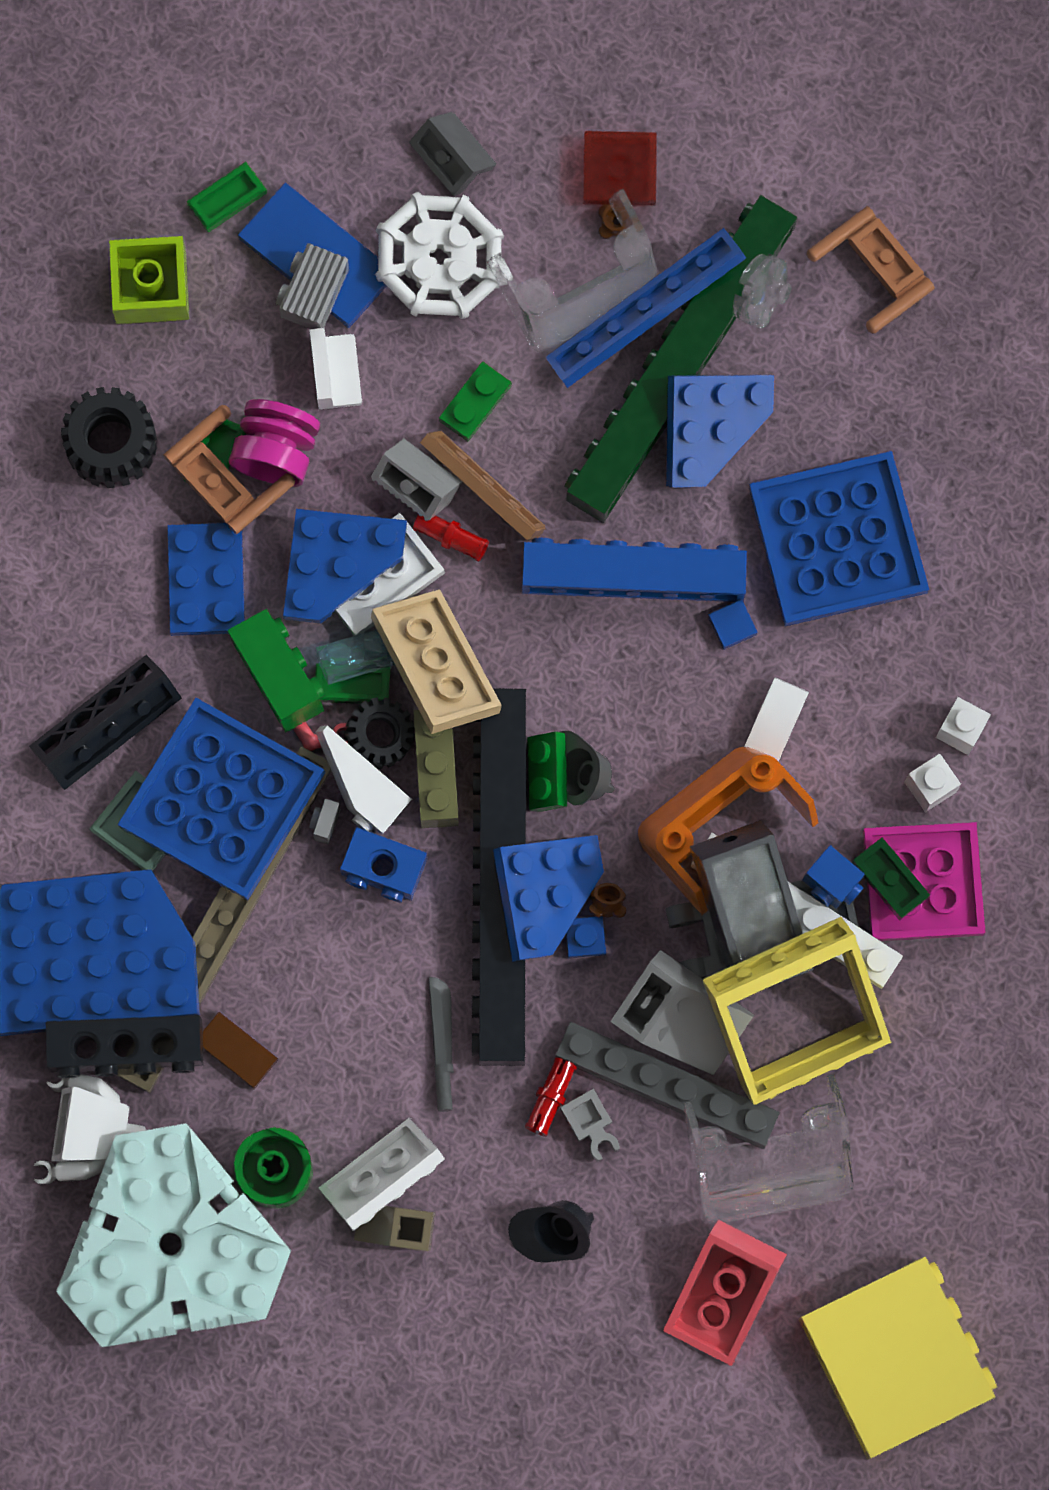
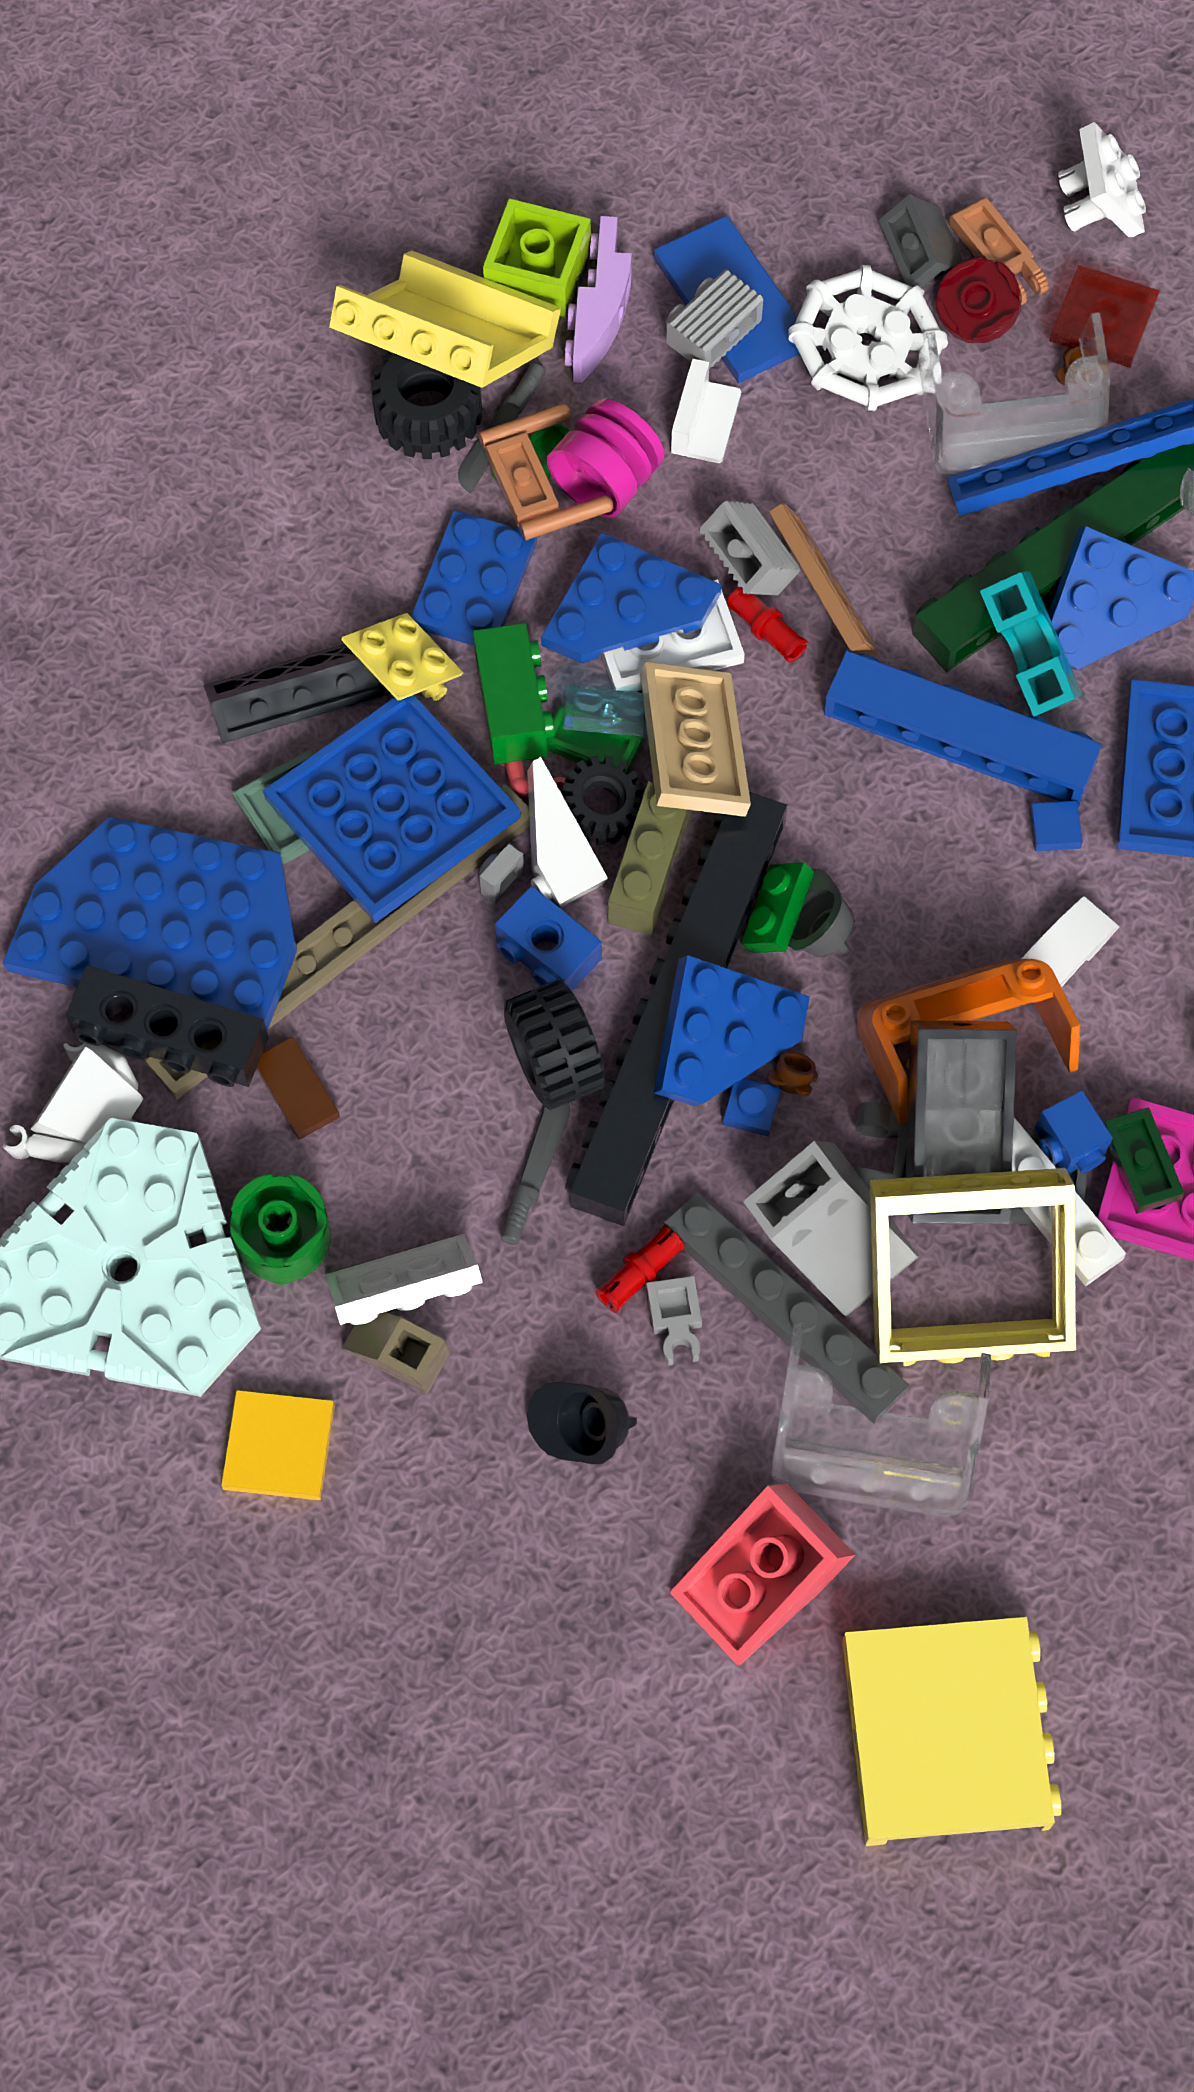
camera: 25 degrees right, 10 degrees down
(104, 370) = (449, 320): none -> light yellow panel
(166, 473) = (513, 405): none -> dark grey piece
(180, 671) = (403, 658): none -> light yellow hinge
(217, 306) = (601, 304): none -> lavender slope
(227, 197) = (658, 212): green tile -> none
(336, 1330) = (278, 1445): none -> yellow tile
(424, 951) = (554, 1044): none -> black tyre
(475, 401) = (849, 498): green plate -> none
(514, 136) = (991, 237): none -> nougat hinge
(515, 190) = (978, 300): none -> dark red tile
(586, 49) = (1110, 181): none -> white plate
(682, 504) = (1040, 658): none -> teal arch

